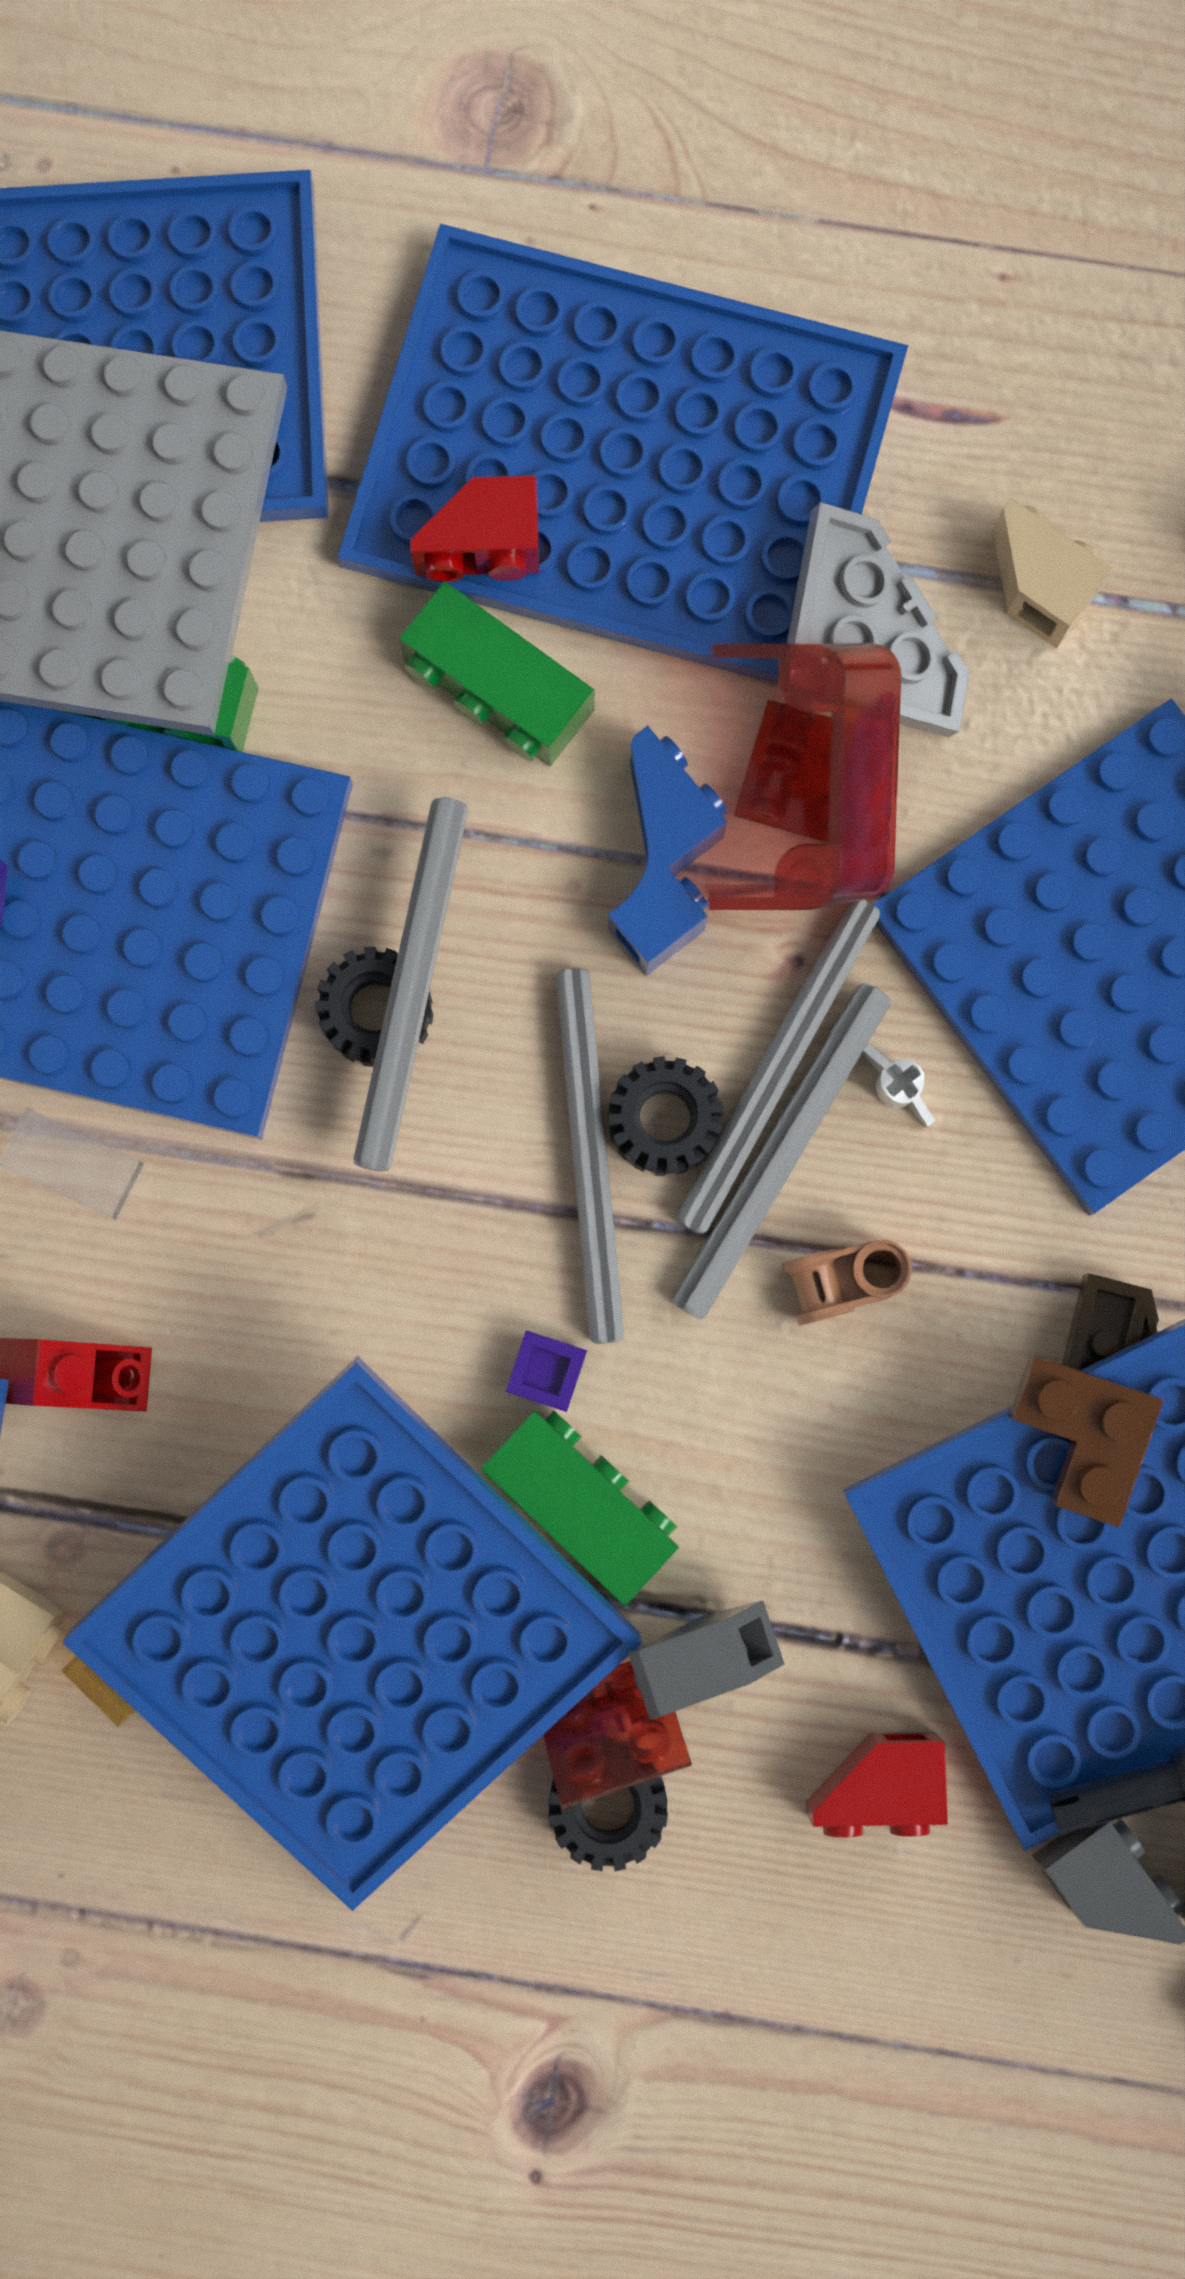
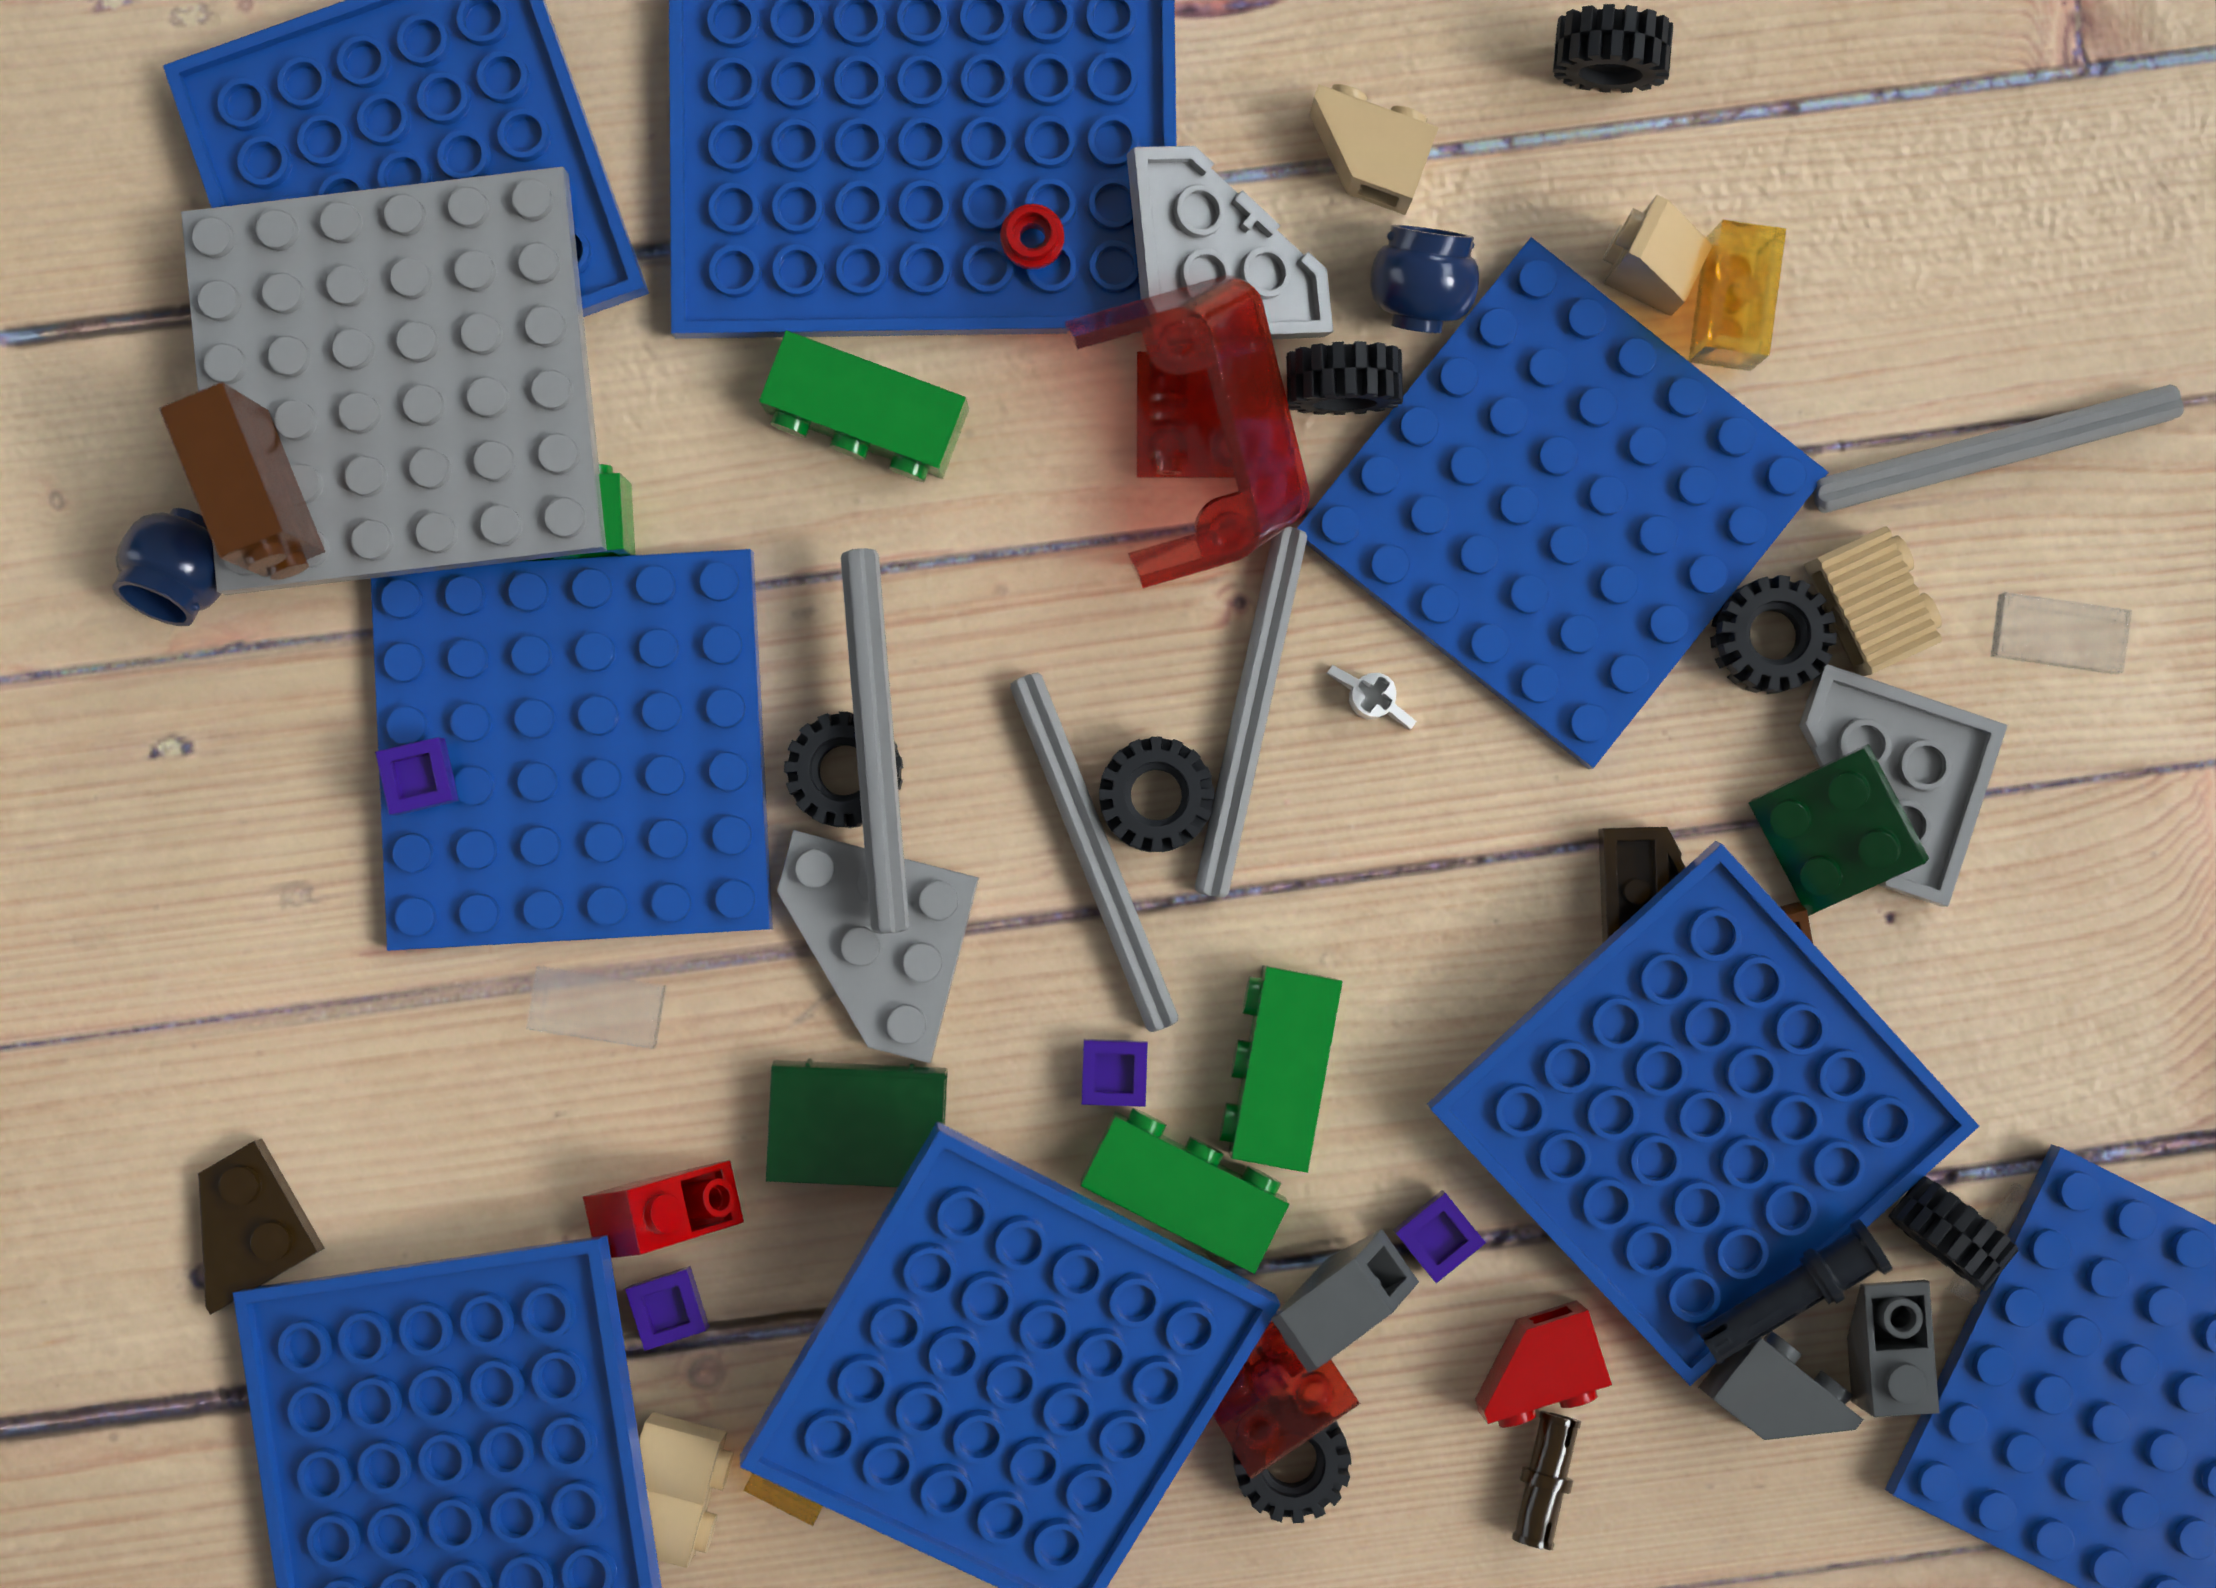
camera: 20 degrees left, 5 degrees up
(46, 1472) = (667, 1308): none -> dark purple plate
(275, 1340) = (850, 1121): none -> dark green piece
(353, 1216) = (886, 981): none -> light grey plate
(481, 532) = (809, 268): red slope -> none
(676, 828) = (1085, 507): blue arch -> none
(706, 545) = (1032, 217): none -> red plate
(710, 1413) = (1281, 1068): none -> green brick
(781, 1151) = (1278, 793): light grey axle -> none
(817, 1626) = (1439, 1236): none -> dark purple plate
(843, 1279) = (1371, 904): nougat piece -> none
(854, 1903) = (1546, 1480): none -> dark brown pin
(958, 773) = (1344, 378): none -> black tyre
(1061, 703) = (1425, 277): none -> dark blue piece
(1106, 1429) = (1659, 977): reddish brown plate -> none

